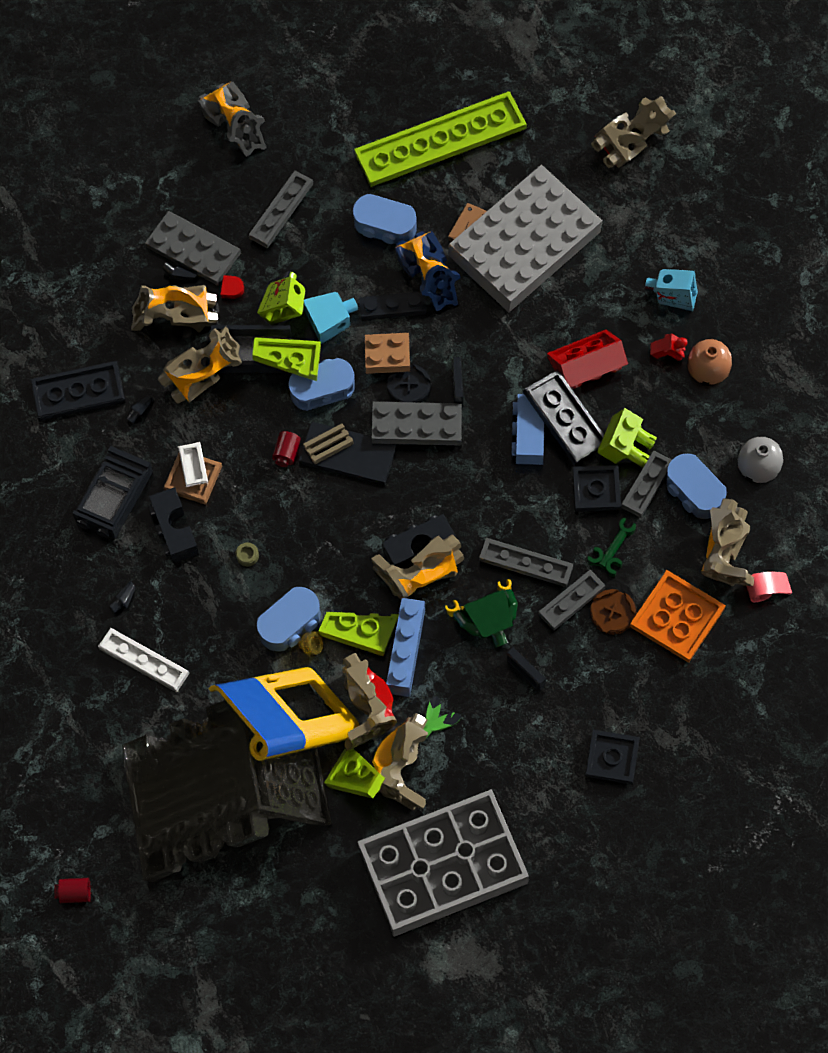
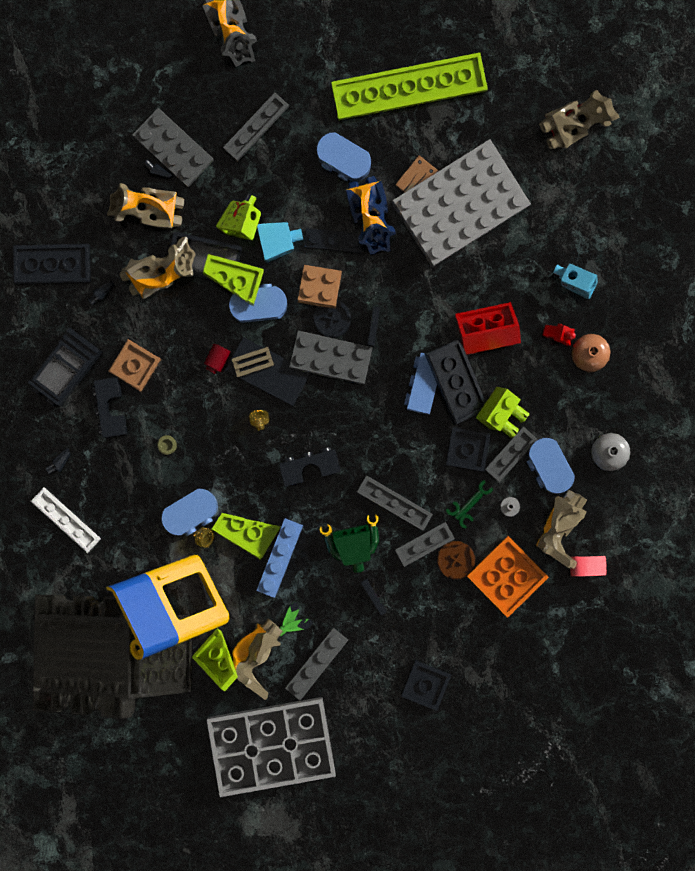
camera: 10 degrees right, 20 degrees up
(193, 464) = (136, 357): white tile -> none
(232, 287) = (200, 193): red tile -> none
(349, 503) = (259, 419): none -> clear yellow tile
(370, 696) = (242, 594): dark tan hips -> none
(432, 564) = (312, 497): dark tan hips -> none
(476, 760) = (316, 664): none -> dark grey plate
(660, 541) = (504, 506): none -> light grey tile

